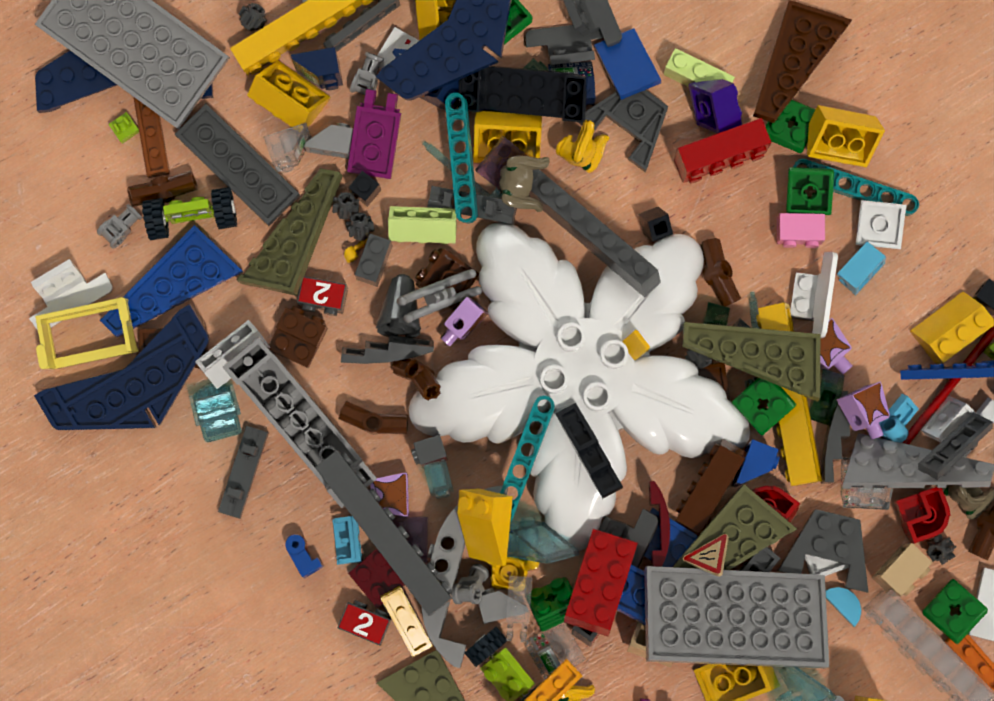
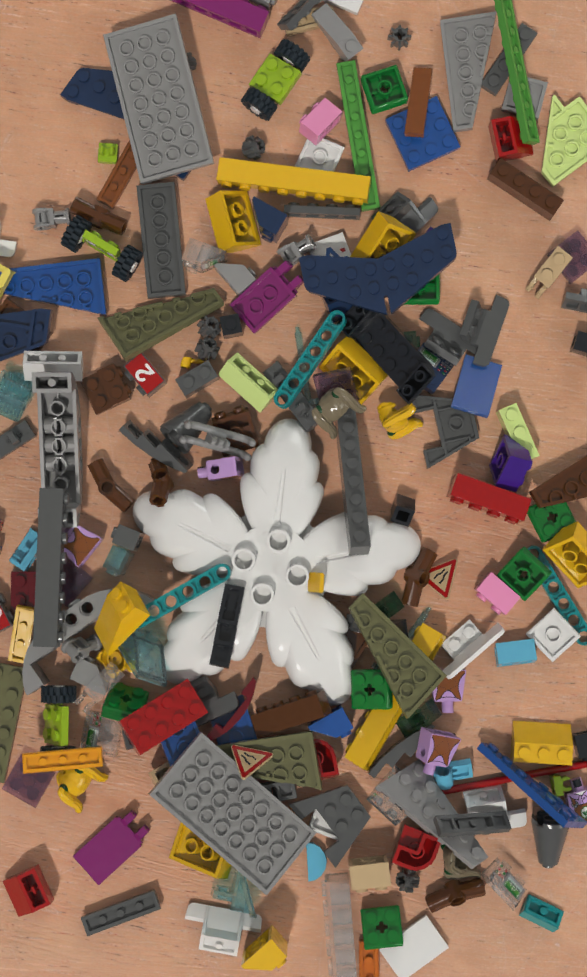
camera: 40 degrees right, 5 degrees up
(741, 254) = (442, 577): none -> piece

